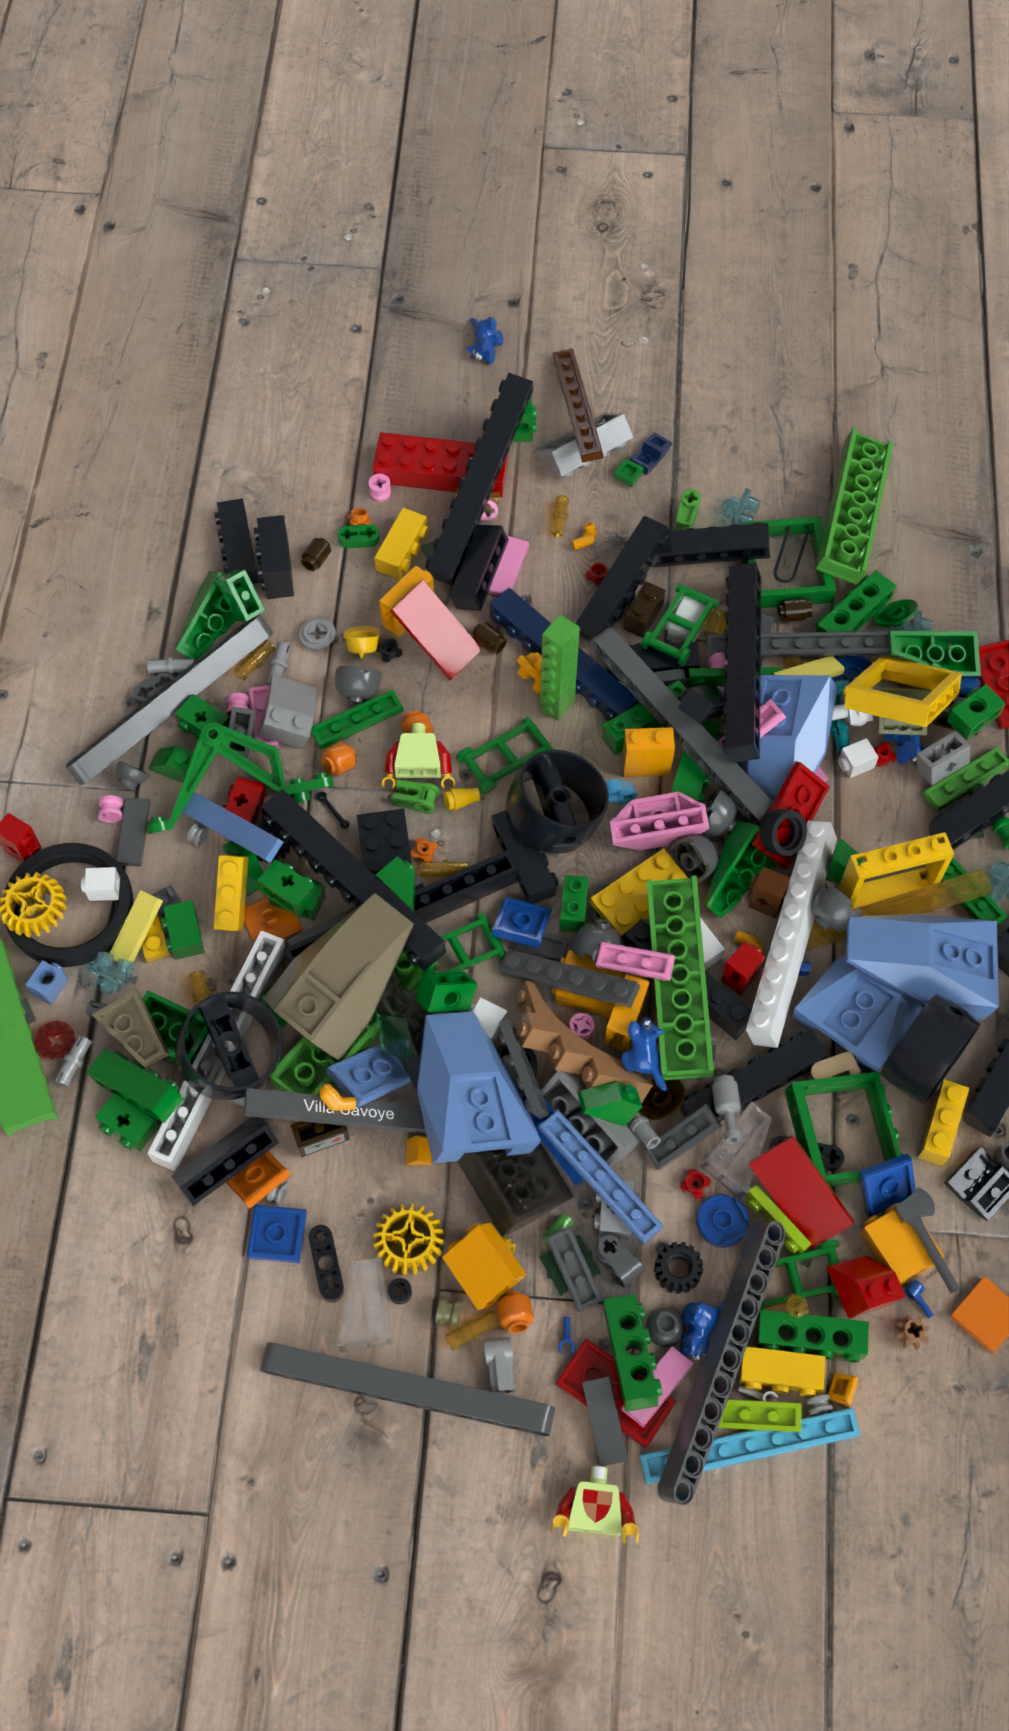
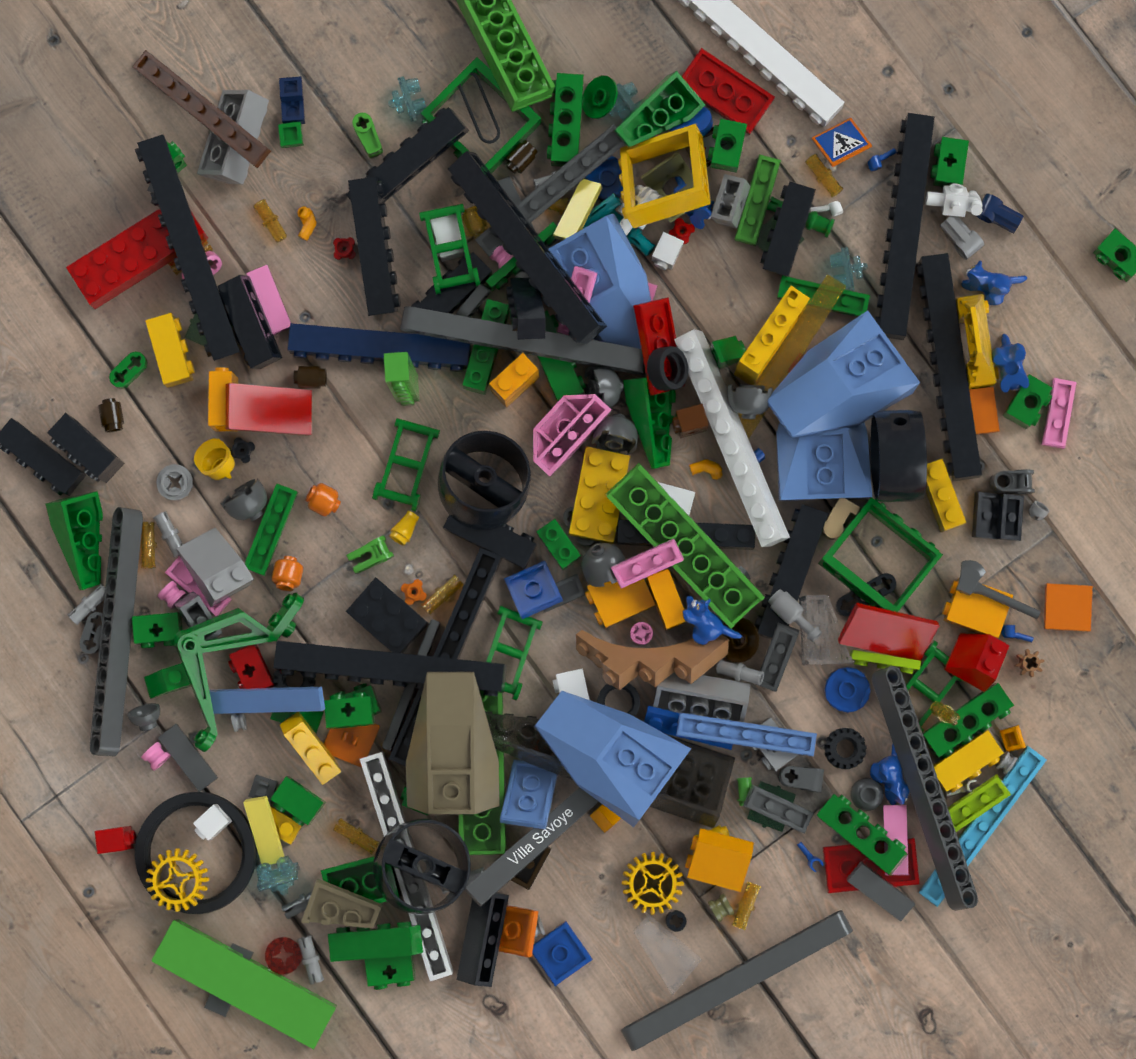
camera: 35 degrees left, 20 degrees up
(49, 991) = (233, 930): medium blue brick -> none
(240, 595) = (93, 507): green brick -> none
(322, 797) = (336, 620): black hinge -> none
(334, 1101) = (528, 841): light orange arm -> none
(337, 1280) = (628, 950): black beam -> none
(359, 517) = (114, 354): orange plate -> none
(377, 492) = (109, 316): bright pink wheel -> none
(394, 1035) = (524, 757): clear green piece -> none
(400, 879) = (429, 642): green slope -> none
(418, 757) = (348, 526): yellowish green torso -> none
(446, 991) = (531, 693): green brick -> none
(486, 339) = (66, 95): blue animal -> none
(499, 1359) = (780, 910): light grey piece -> none
(515, 1312) = (764, 870): orange head -> none
(526, 1079) = (640, 709): dark grey plate -> none
(531, 667) = (369, 375): light orange hips -> none
(569, 978) = (607, 609): dark grey plate -> none
(596, 1509) = (920, 951): torso -> none
(611, 1102) = (712, 677): green slope -> none
(621, 791) = (518, 426): dark azure beam -> none
(644, 609) = (407, 253): dark brown brick -> none
(695, 1176) = (804, 684): red plate -> none
(743, 968) = (719, 495): red brick -> none
(887, 1183) = (939, 574): blue tile -> none

